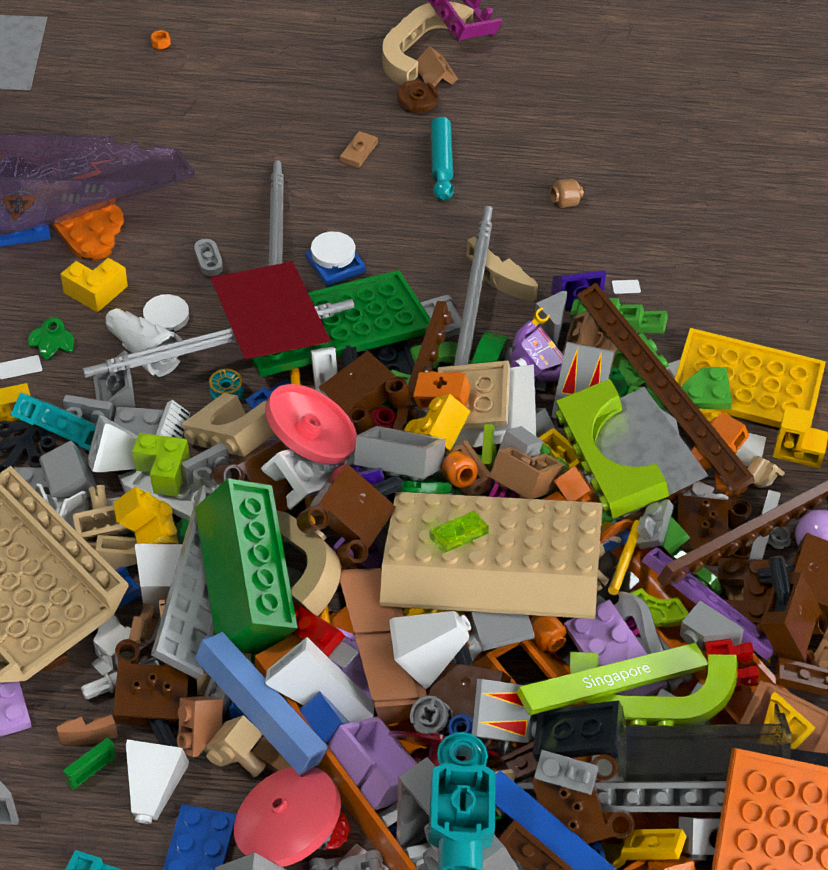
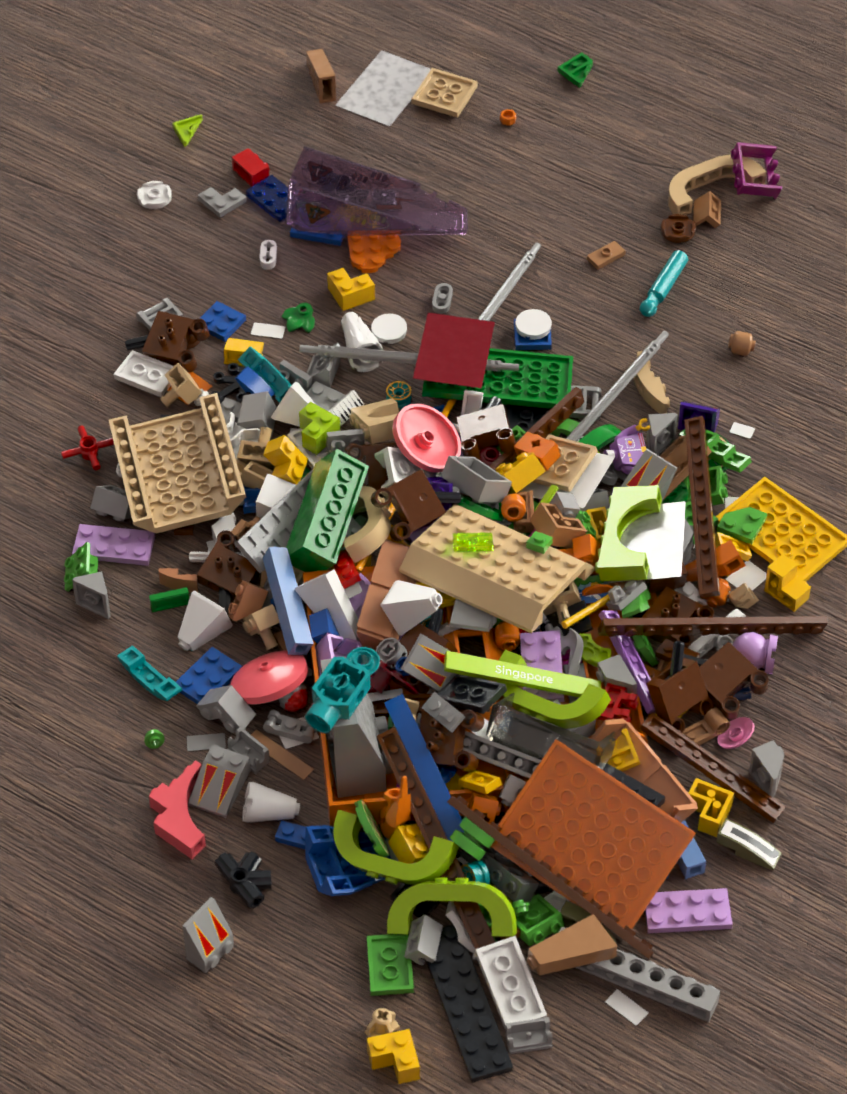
camera: 30 degrees right, 0 degrees up
(42, 436) = (252, 382): none -> blue slope
(73, 35) = (444, 92): none -> tan plate
(535, 500) = (539, 542): none -> bright green plate

